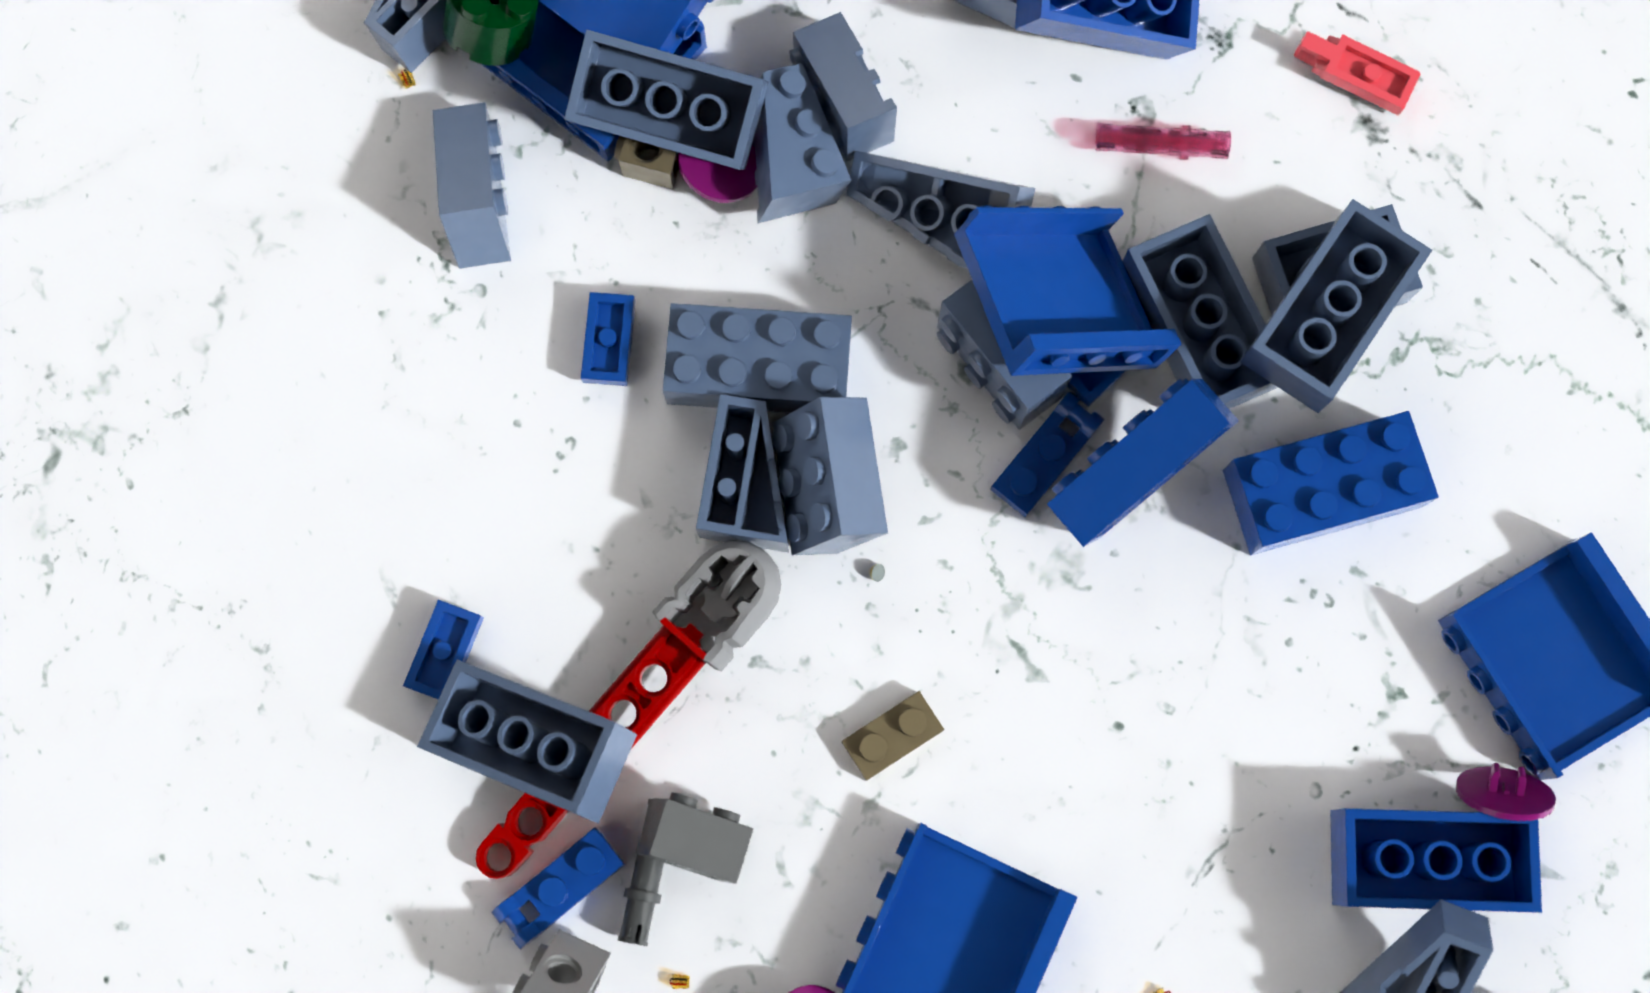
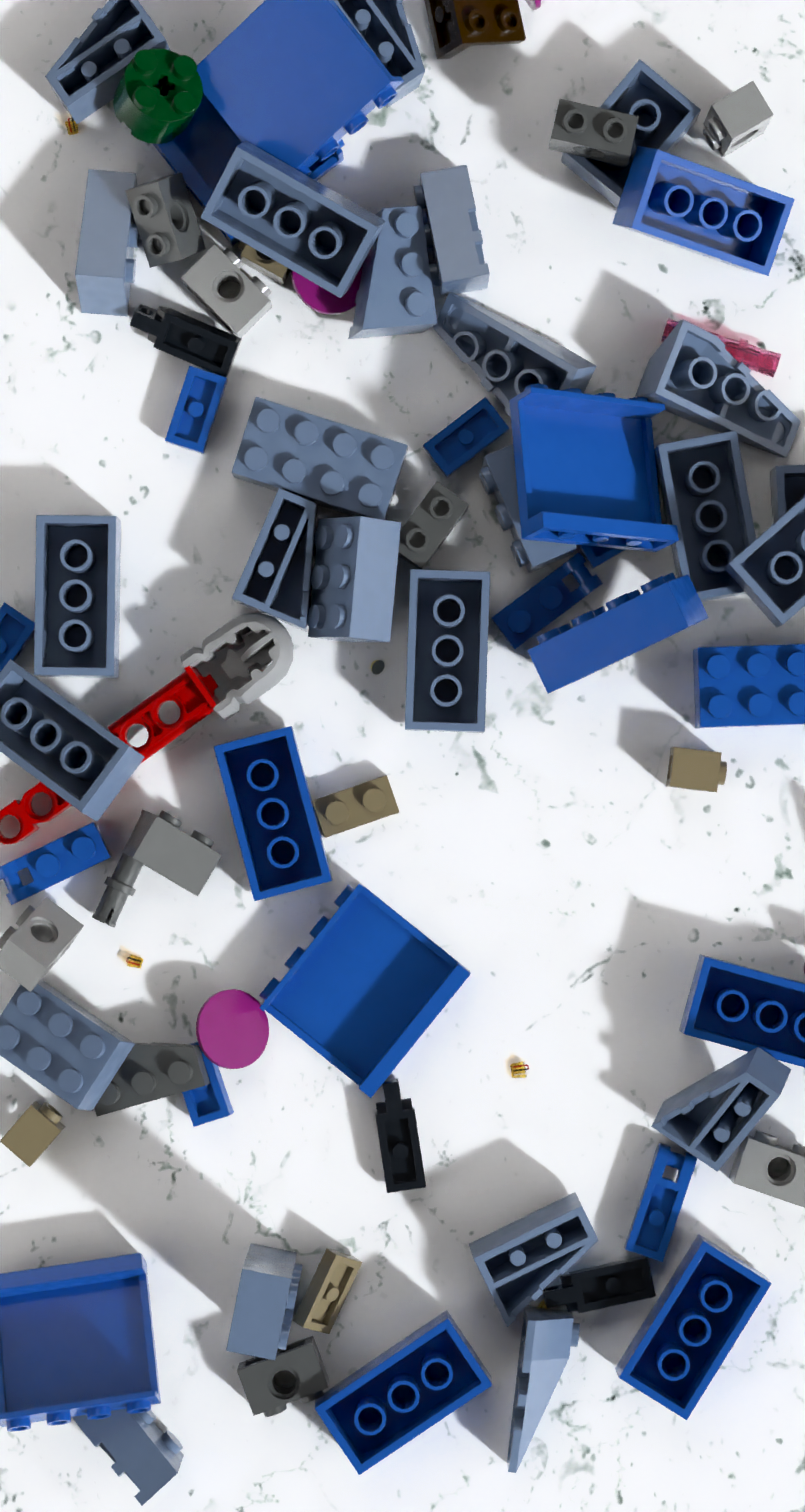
camera: 10 degrees right, 10 degrees up
(519, 572) = (77, 596): none -> sand blue brick
(527, 141) = (165, 220): none -> dark grey brick
(582, 264) = (188, 338): none -> black hinge
(627, 226) = (237, 313): none -> light grey brick
(801, 764) = (273, 813): none -> blue brick
(899, 399) = (430, 525): none -> dark grey brick
(912, 298) = (466, 437): none -> blue plate
(953, 532) = (447, 651): none -> sand blue brick
(1168, 184) = (713, 389): none -> sand blue wedge
(1266, 599) = (695, 769): none -> dark tan brick

